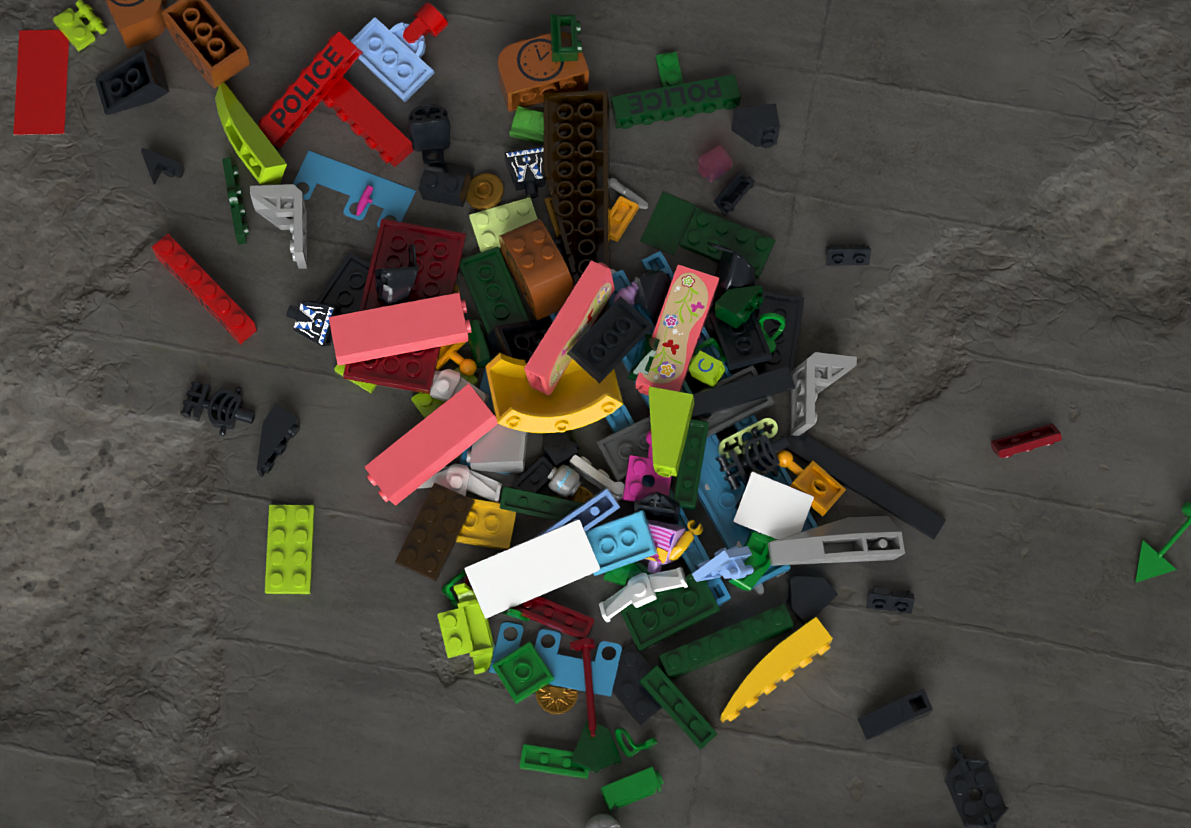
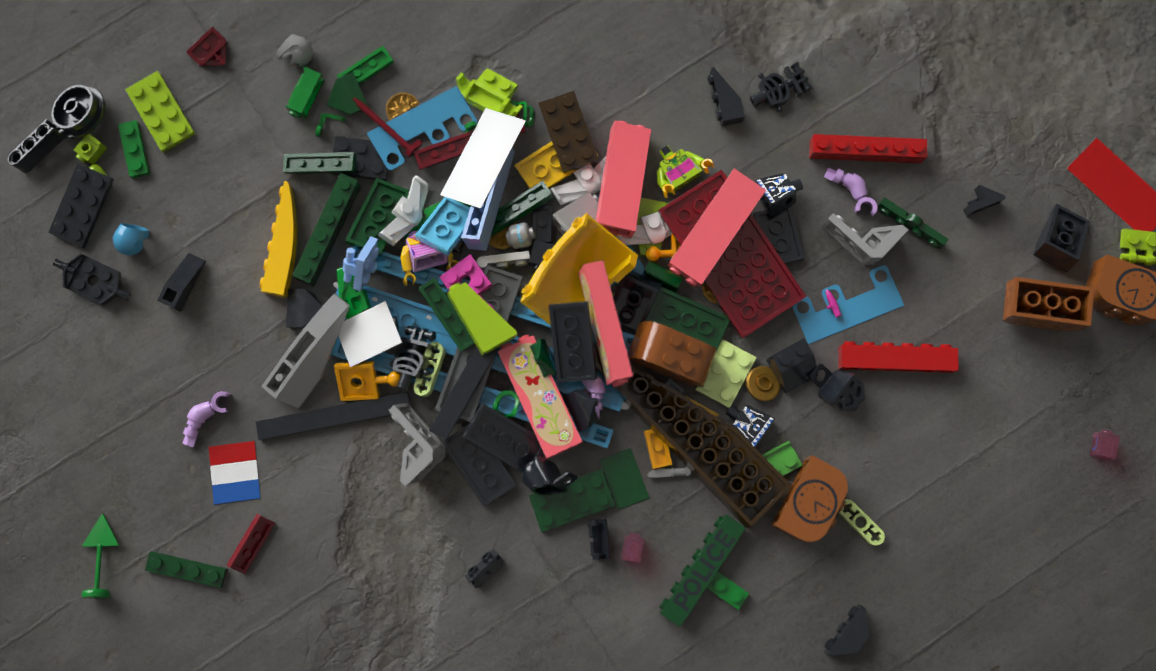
camera: 140 degrees right, 10 degrees up
(246, 268) = (855, 185): none -> lavender piece
(248, 139) = (944, 265): lime wedge -> none
(289, 549) = (647, 46): lime plate -> none
(309, 89) = (944, 337): red brick -> none
(375, 415) = (679, 169): none -> torso
(396, 282) = (750, 256): black piece -> none
(397, 52) = (920, 425): light blue plate -> none
(511, 21) = (867, 536): none -> yellowish green beam
(523, 672) = (433, 101): green tile -> none
(559, 53) = (801, 533): dark green window -> none
(658, 507) = (441, 265): black slope -> none
(706, 369) = (496, 387): lime brick -> none
(737, 304) = (519, 454): dark green slope -> none
(757, 124) = (627, 603): black slope -> none
(770, 341) = (476, 450): green piece -> none
(899, 602) = (254, 349): black hinge -> none
(914, 794) = (129, 239): none -> dark azure helmet
(975, 586) = (199, 414): none -> lavender piece
(990, 515) = (234, 472): none -> sticker
(1100, 472) = (186, 569): none -> dark green plate

